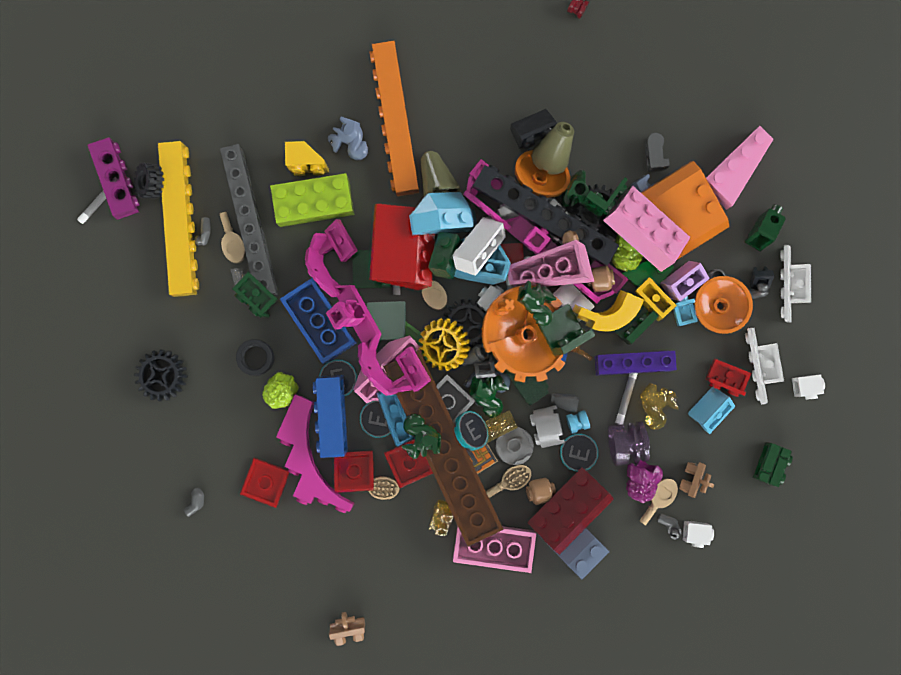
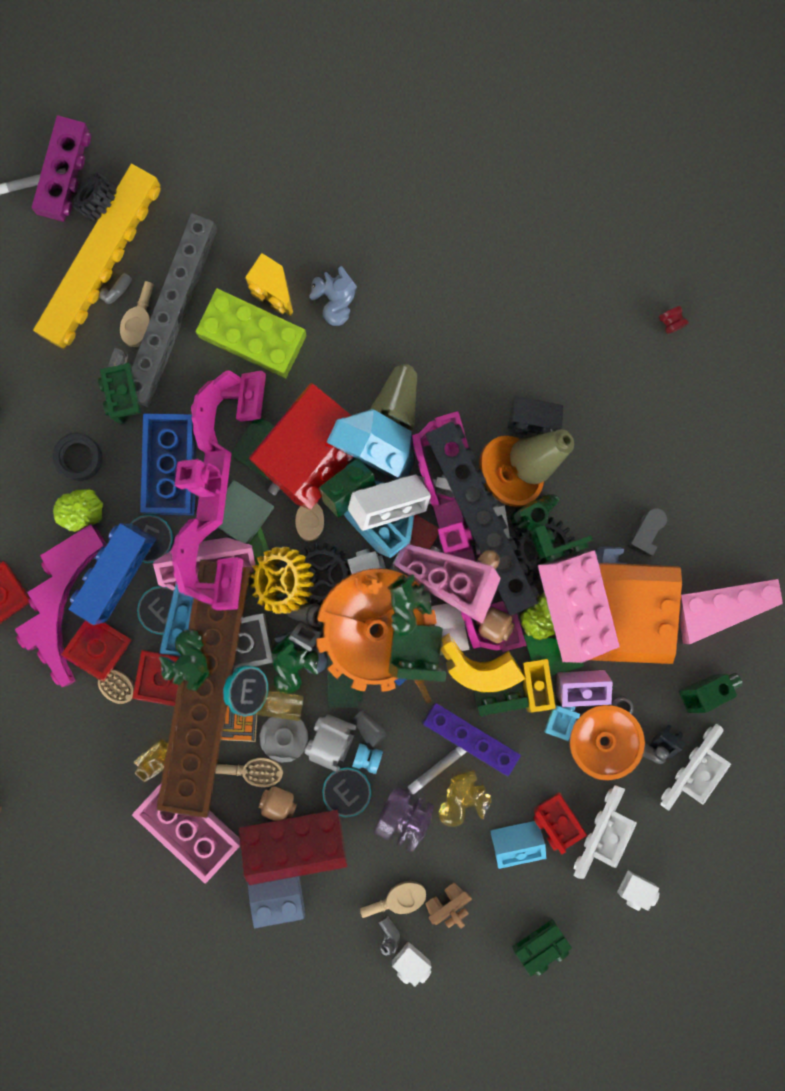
camera: 30 degrees right, 0 degrees up
(395, 118) = (397, 307): orange brick -> none
(643, 481) = (392, 869): magenta hair -> none

